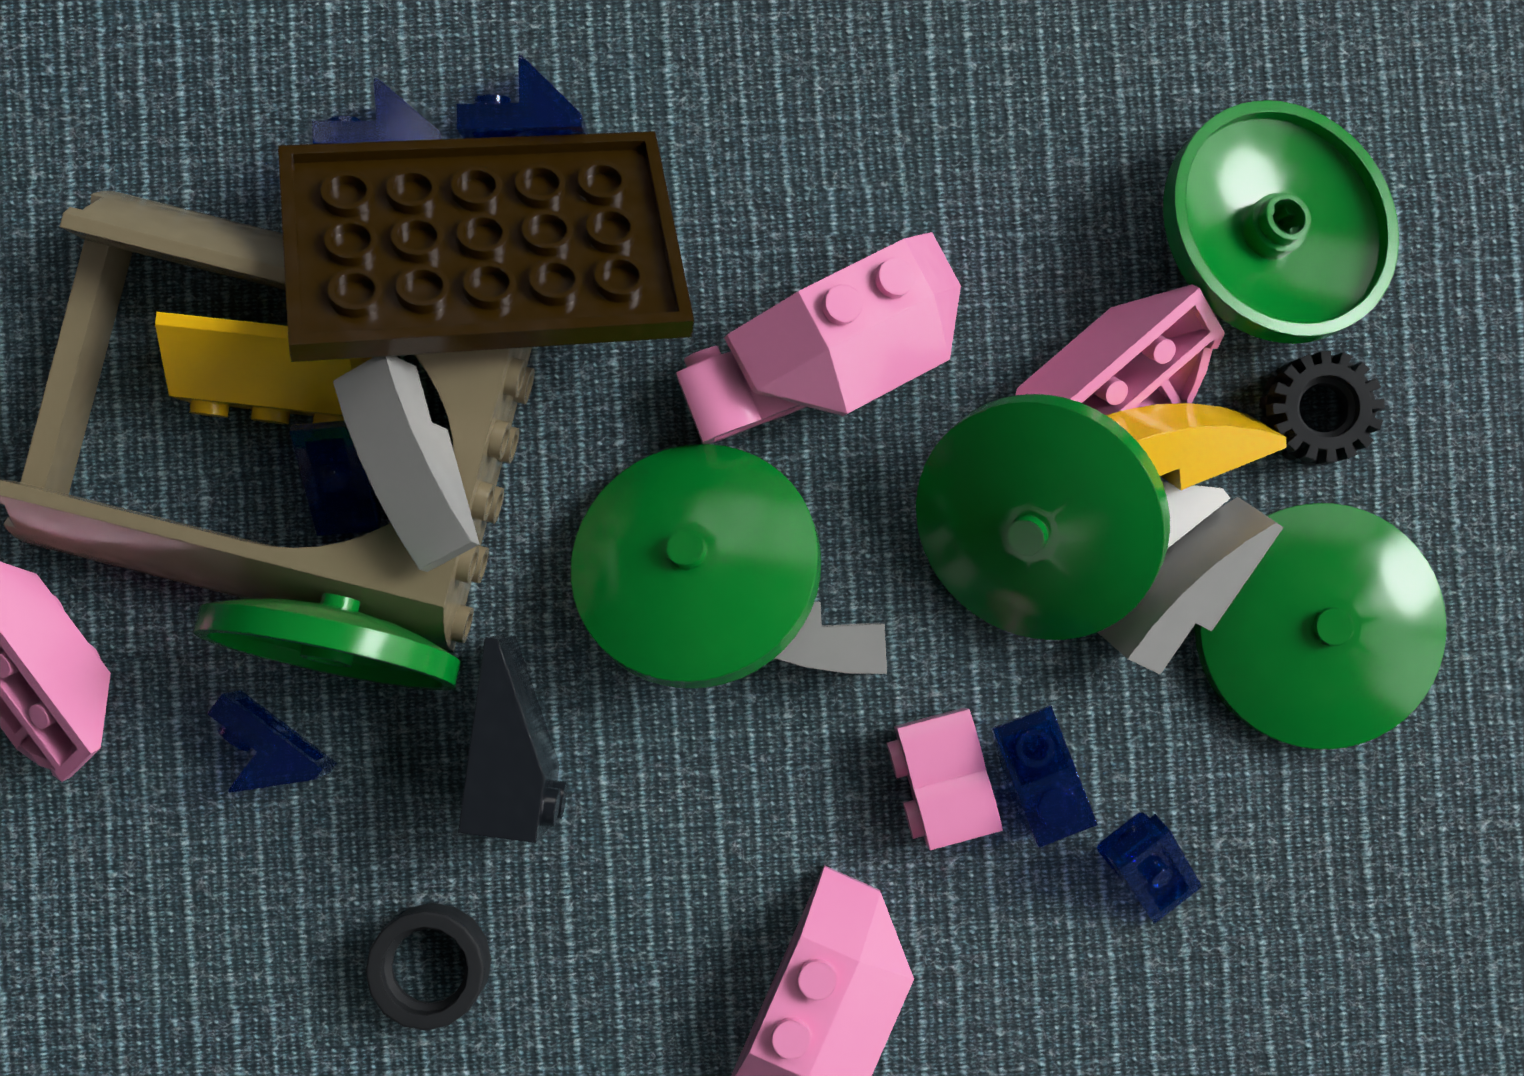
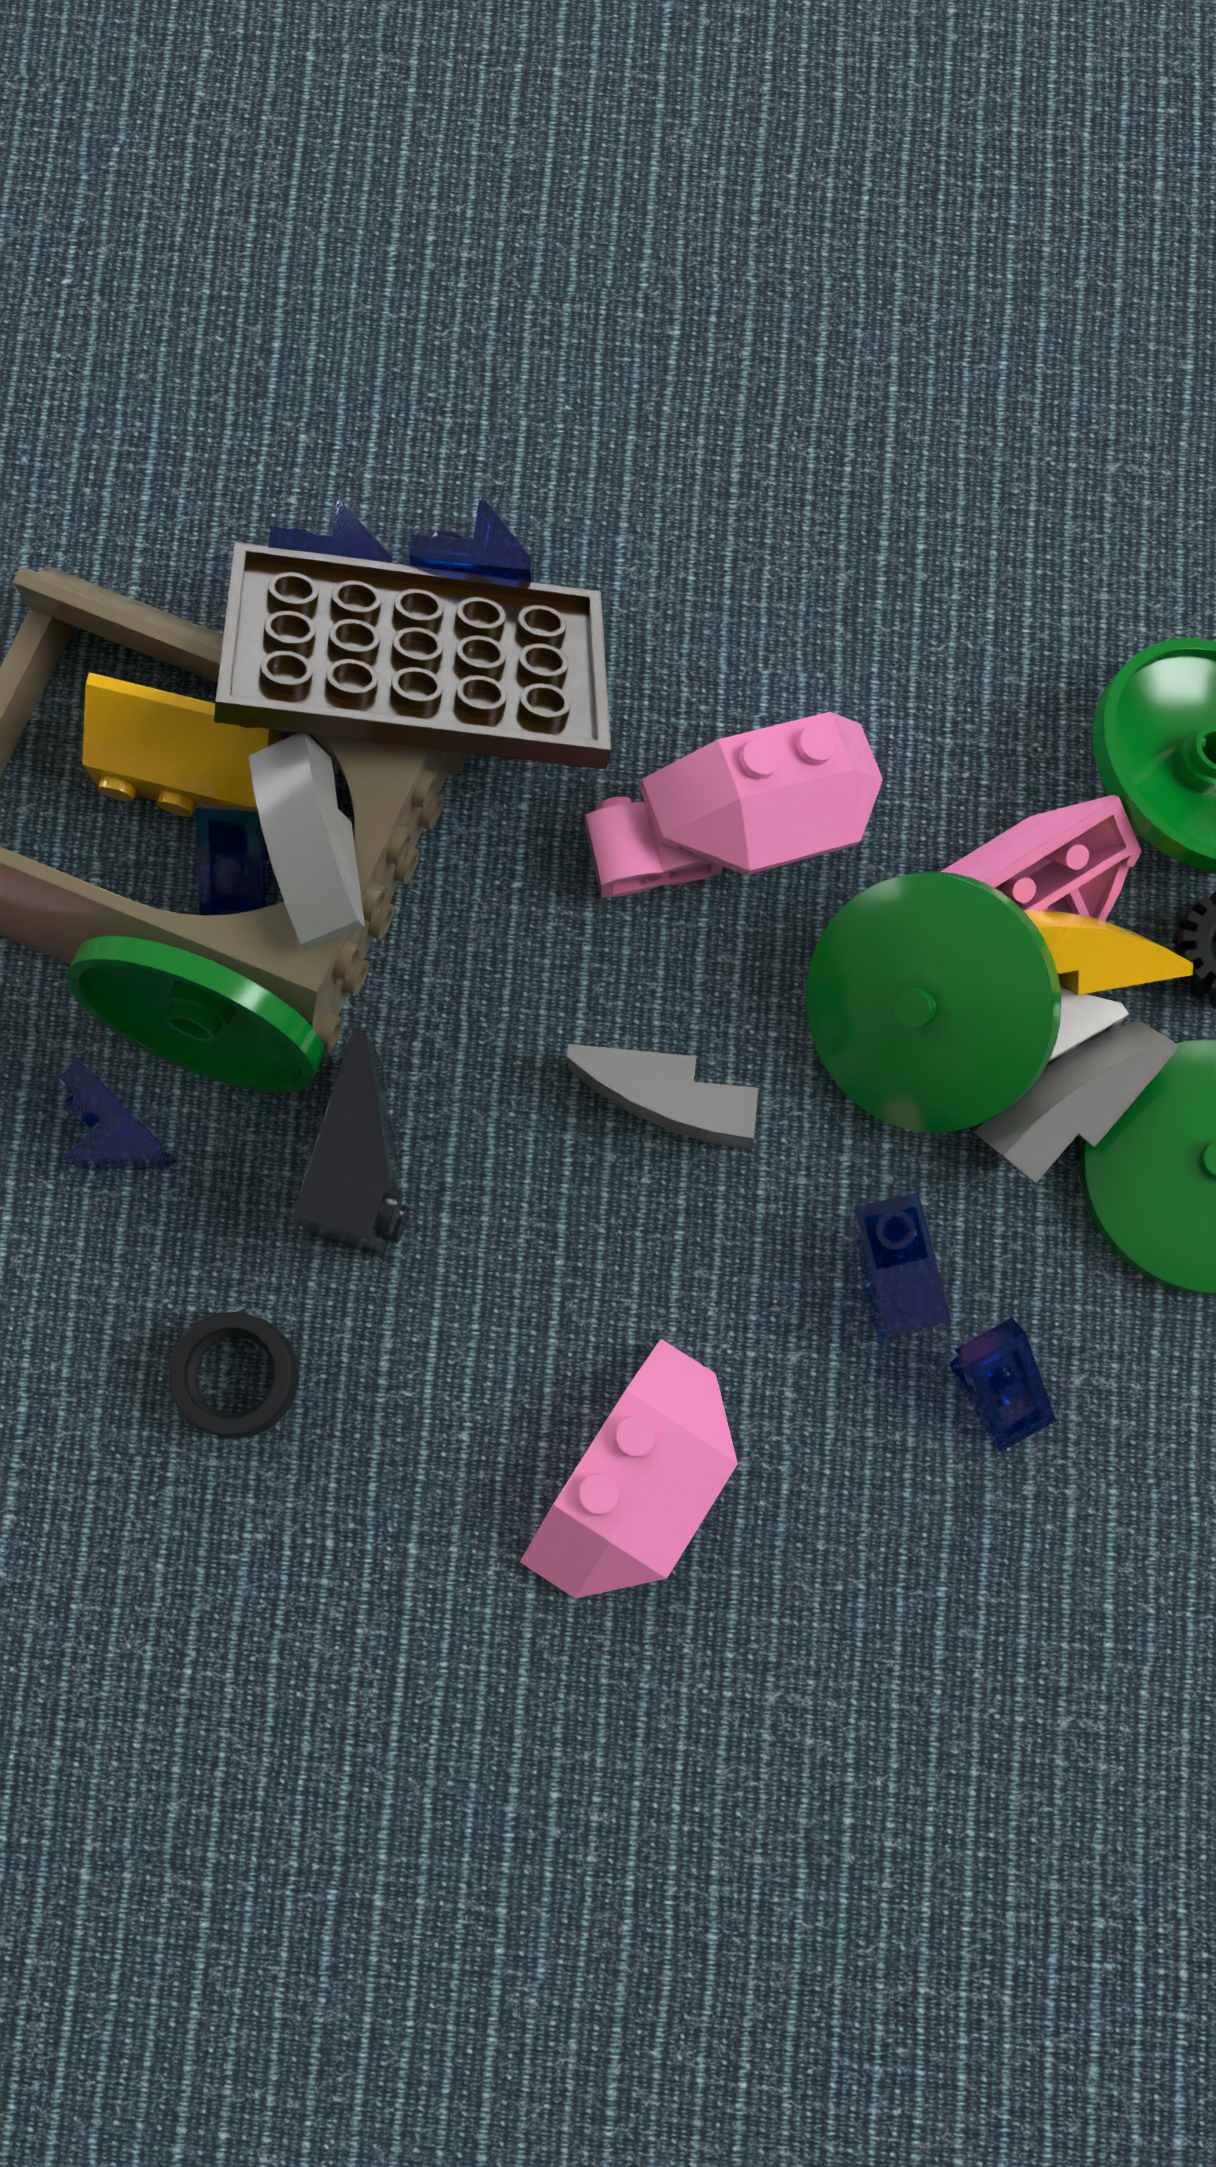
camera: 15 degrees right, 10 degrees down
(696, 566) = (575, 1005): green dish -> none
(945, 778) = (800, 1261): bright pink brick -> none

